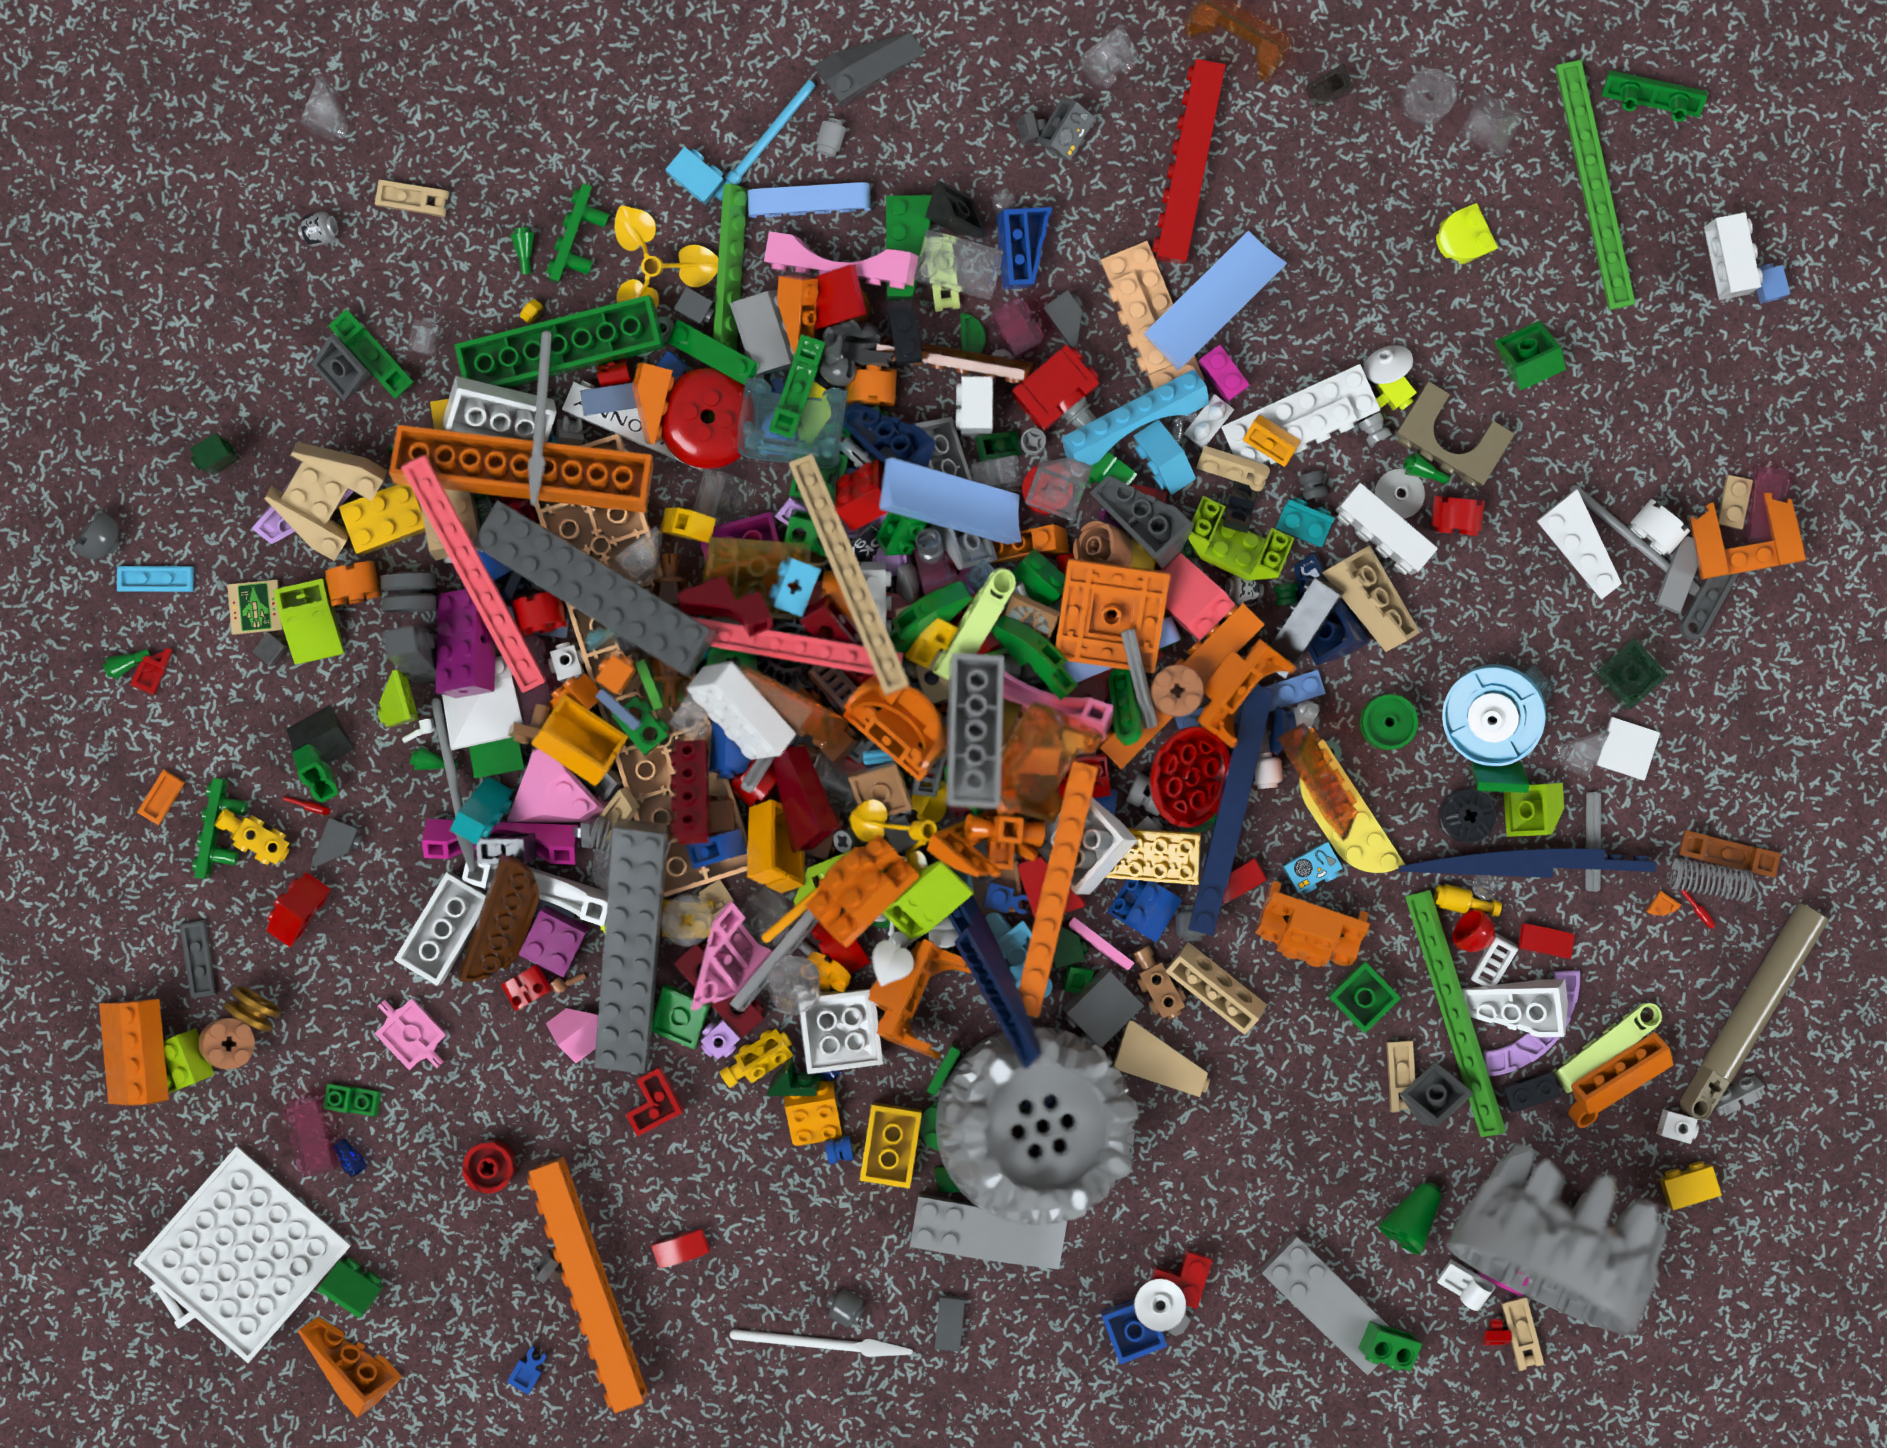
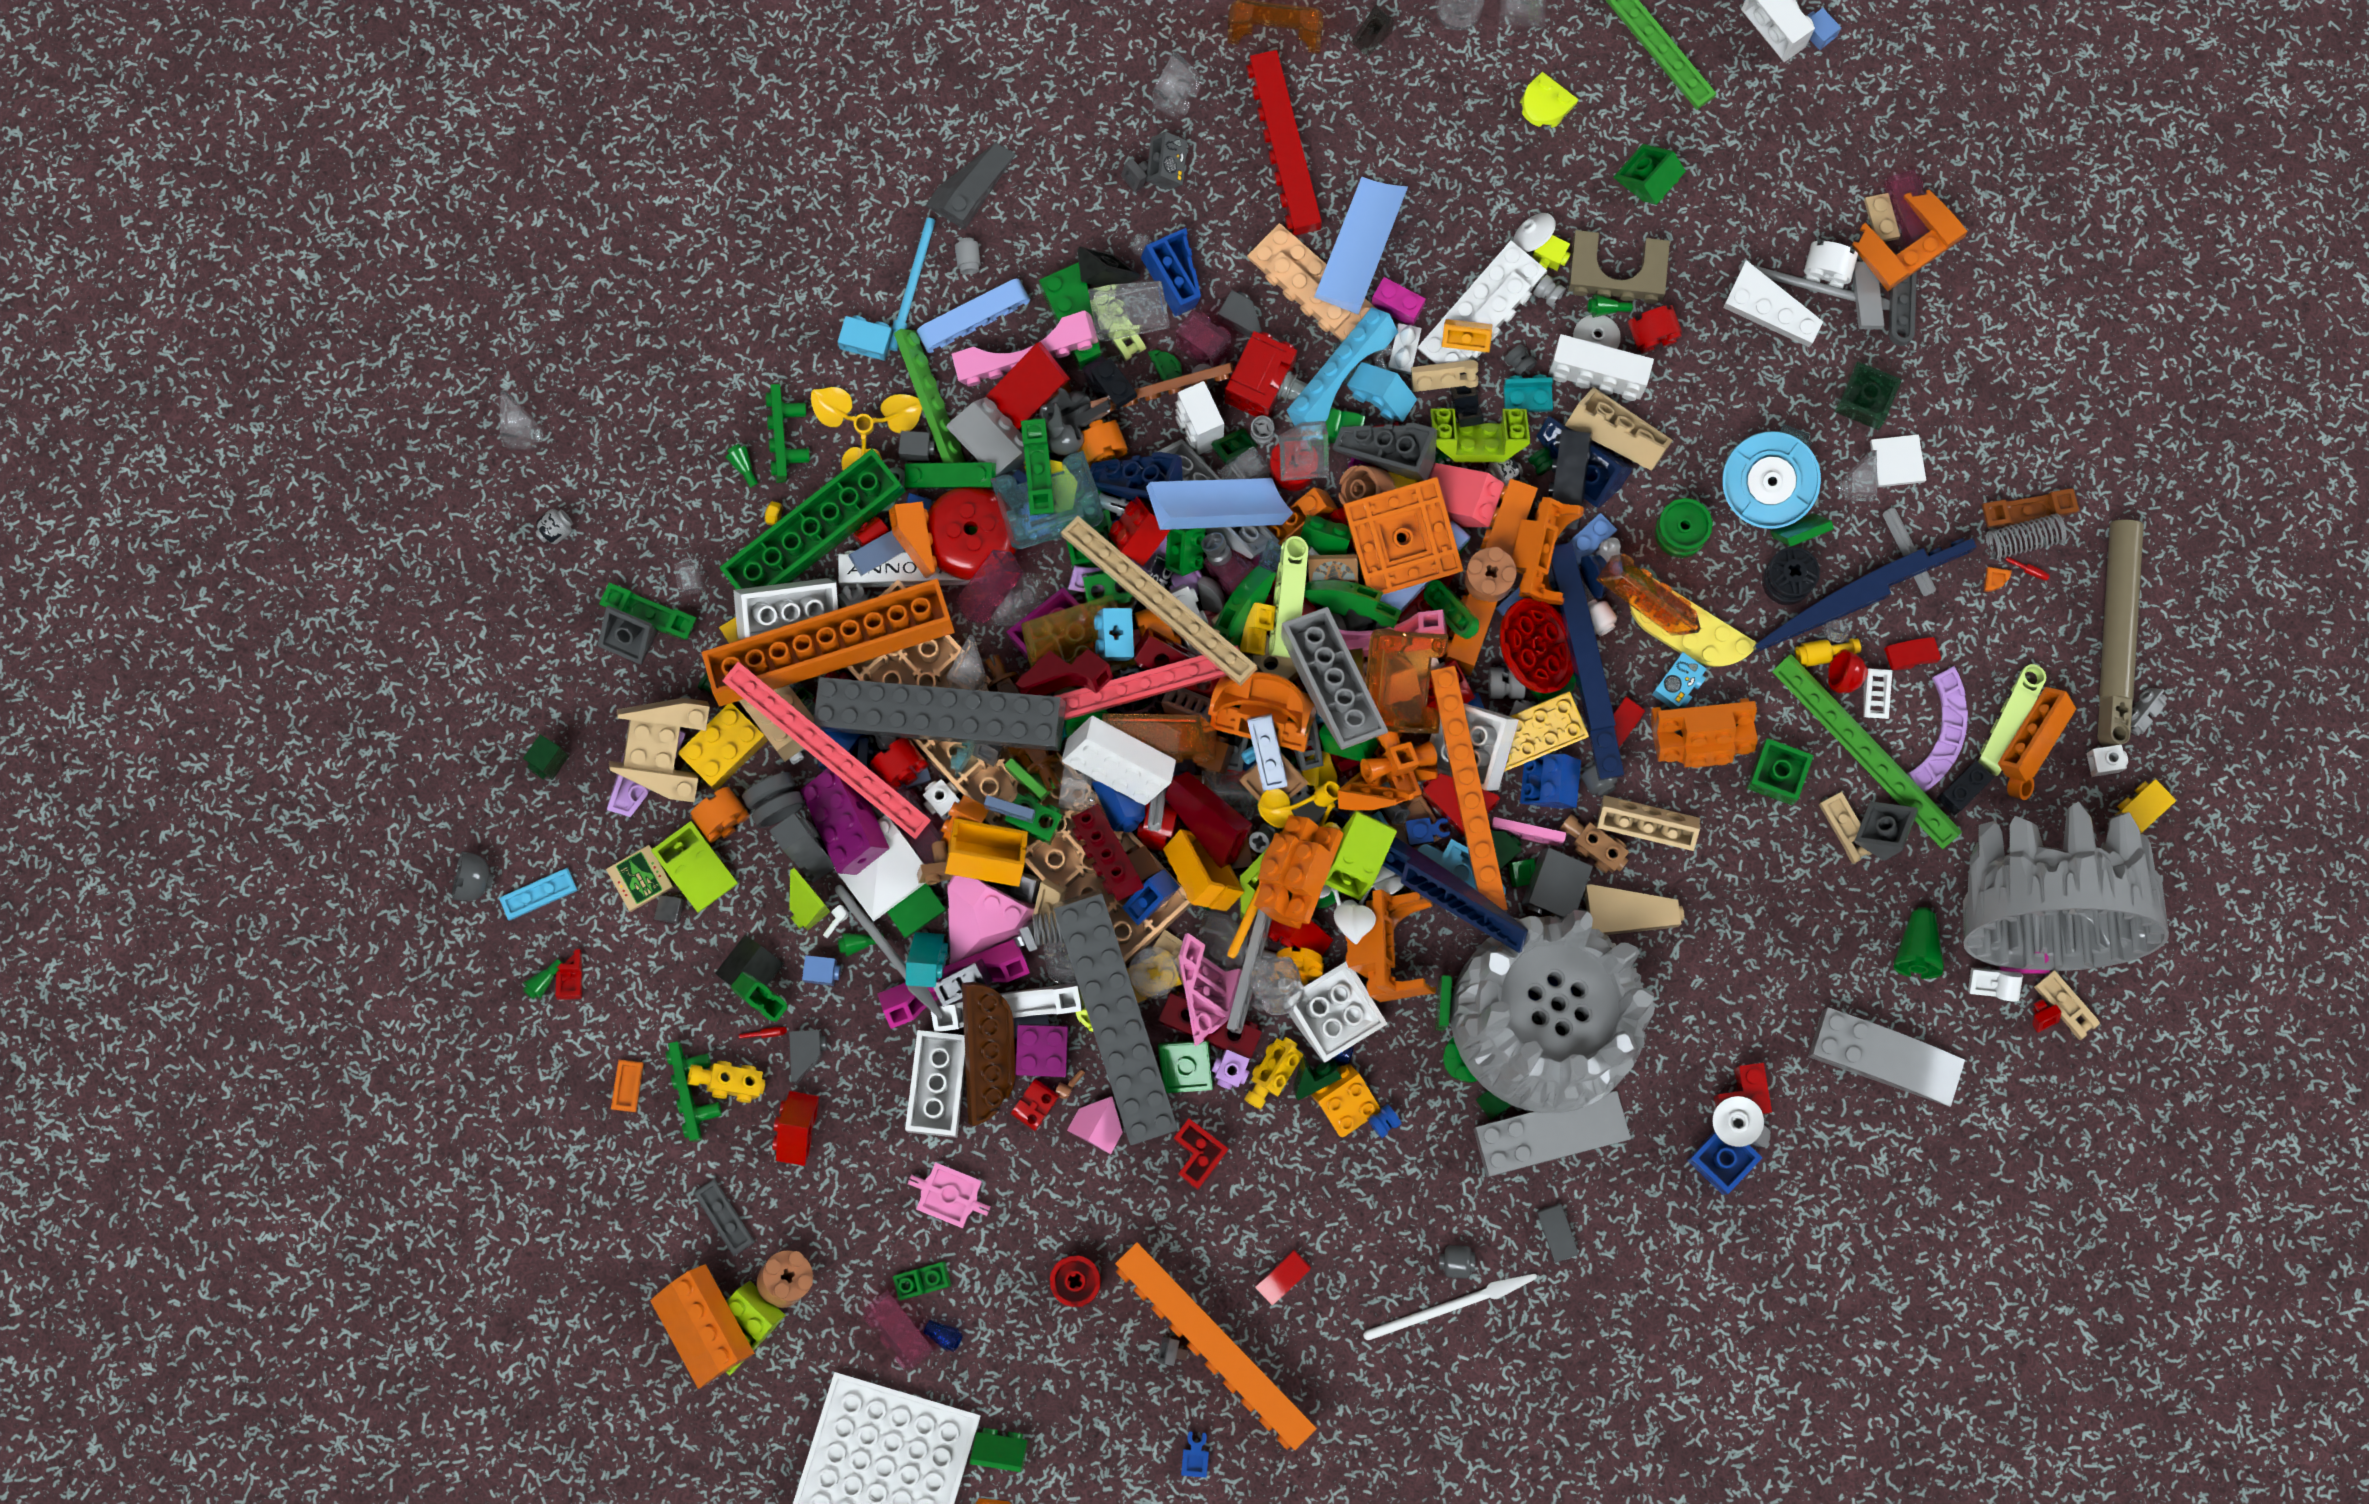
camera: 25 degrees left, 10 degrees down
(252, 1008) = (794, 1235): pearl gold wheel -> none
(384, 772) = (821, 970): none -> medium blue brick
(410, 198) = (624, 465): tan plate -> none
(537, 461) = (840, 626): light grey piece -> none
(616, 673) = (992, 779): orange brick -> none
(687, 524) = (995, 627): yellow slope -> none
(701, 480) = (989, 586): none -> clear pink brick
(797, 306) = (1006, 402): orange slope -> none
(884, 766) = (1267, 752): none -> tile
(890, 1145) = (1428, 1093): yellow brick -> none
(1139, 678) = (1452, 578): light grey axle -> none
(1392, 1342) = (1958, 1069): green brick -> none
(1526, 1006) = (1923, 716): white wedge -> none
(1534, 811) = (1843, 546): lime slope -> none

